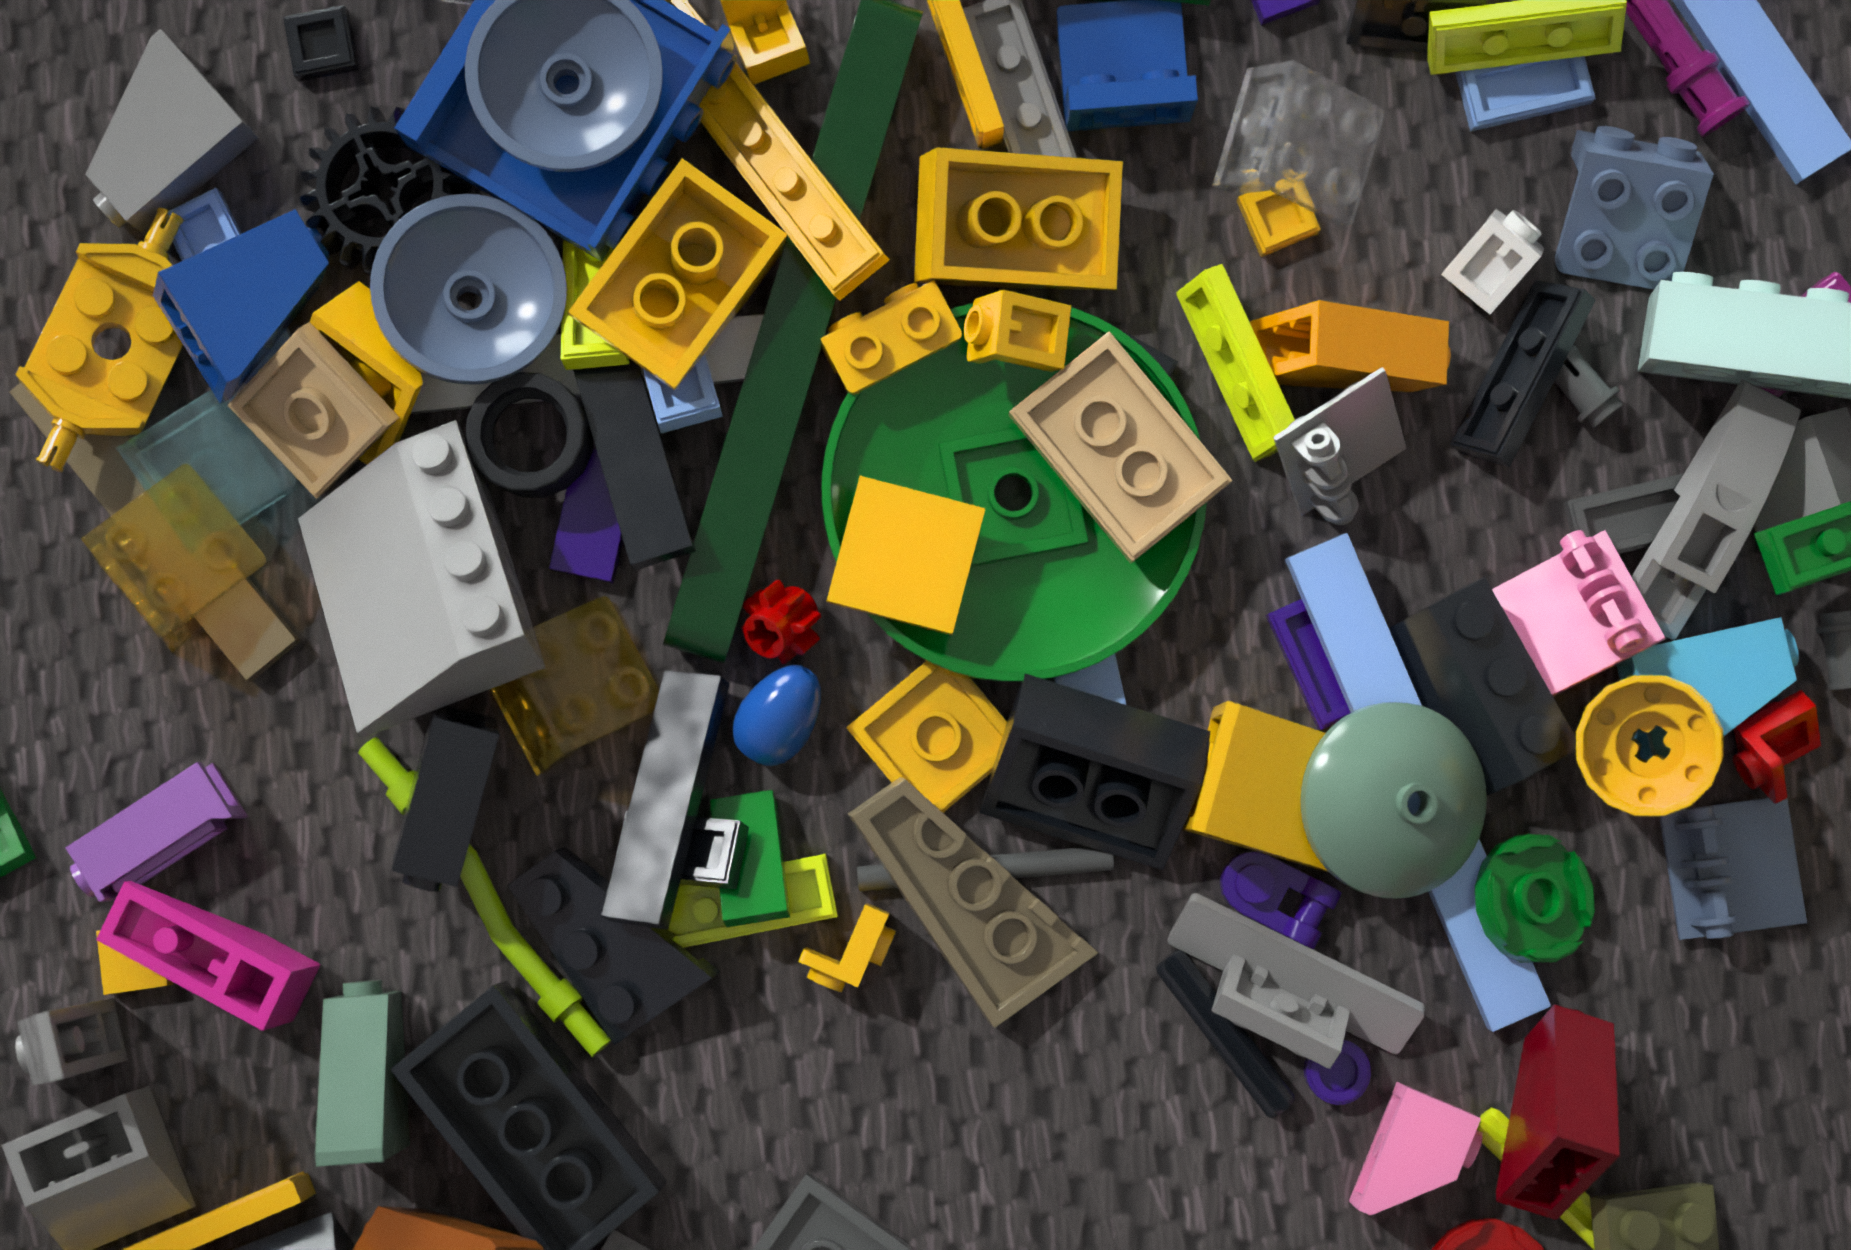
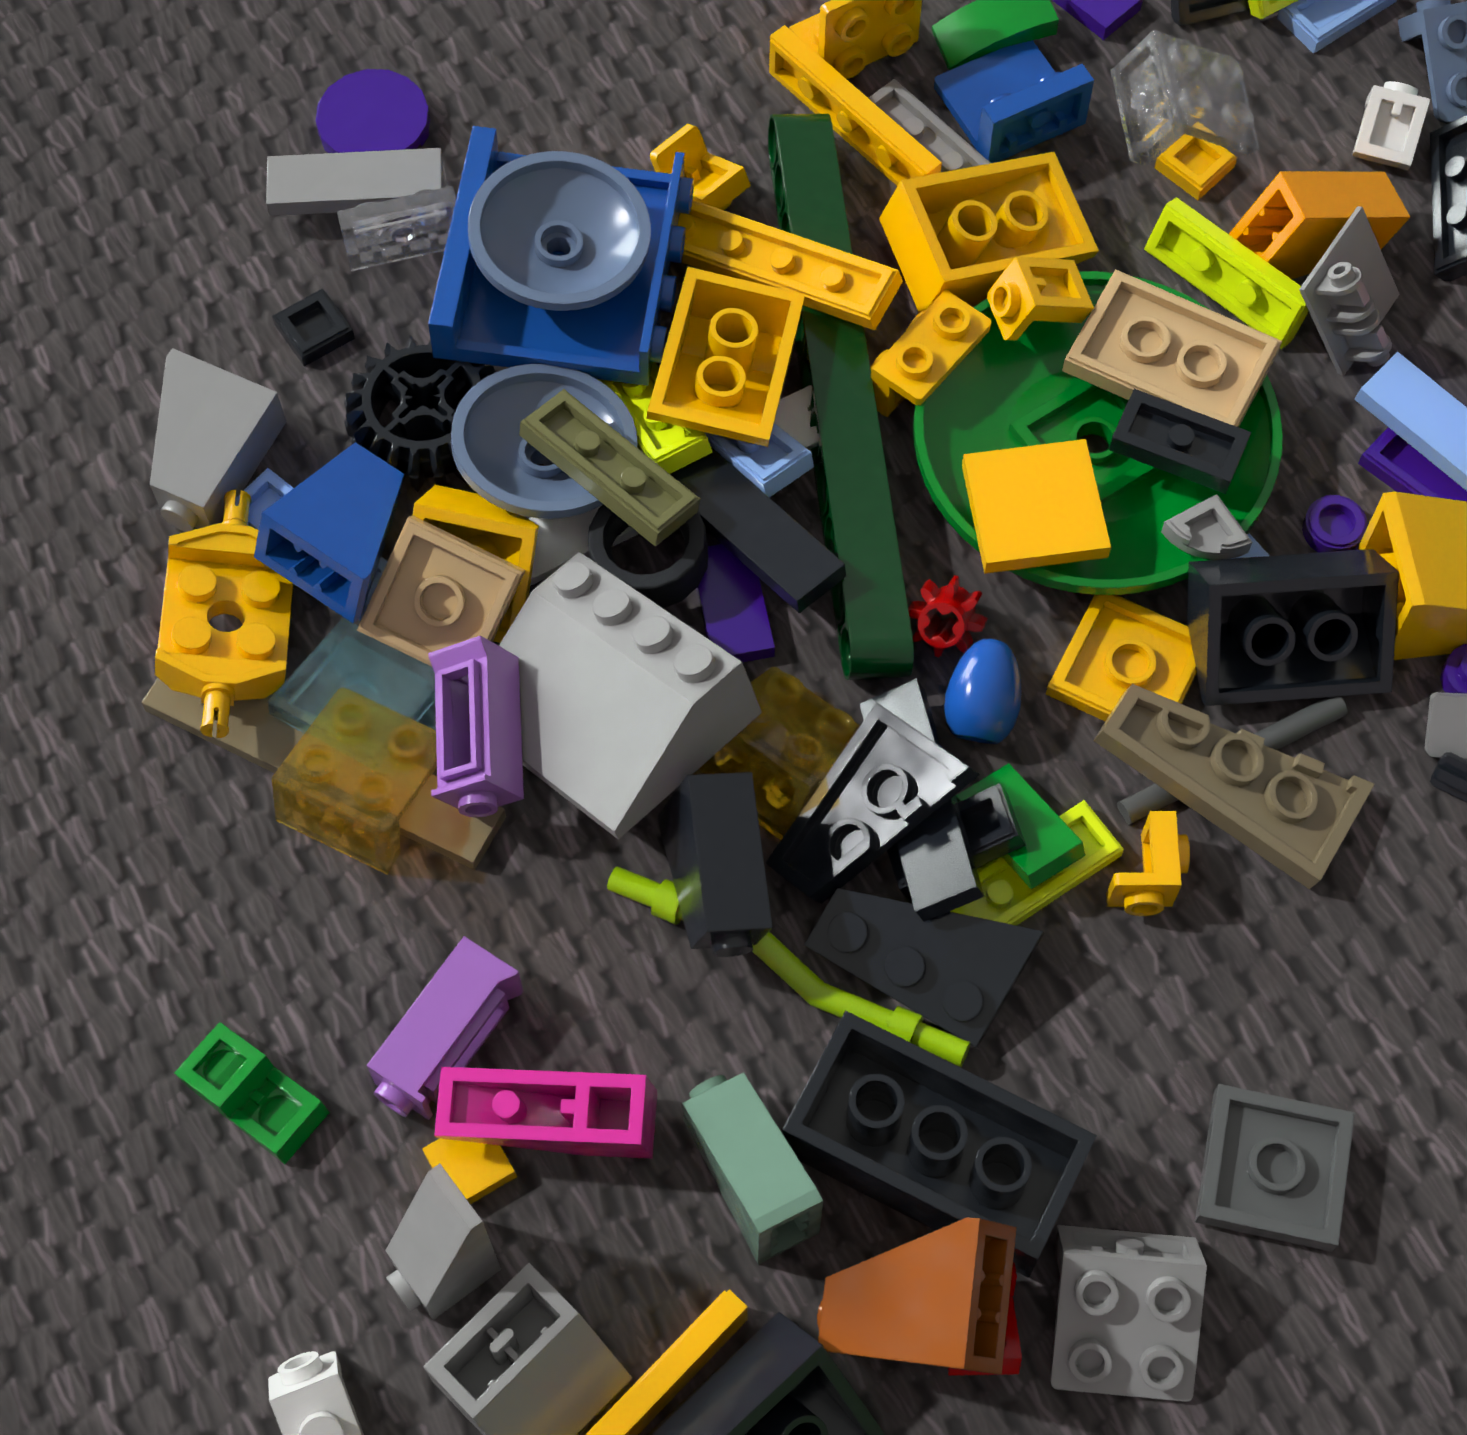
camera: 25 degrees left, 20 degrees down
(289, 564) = (477, 727): none -> medium lavender window
(513, 349) = (609, 467): none -> olive tile
(612, 787) = (867, 803): none -> wing
(1058, 650) = (1207, 531): none -> light grey tile
(1075, 548) = (1179, 441): none -> black plate
(1204, 674) = (1334, 524): none -> dark purple tile

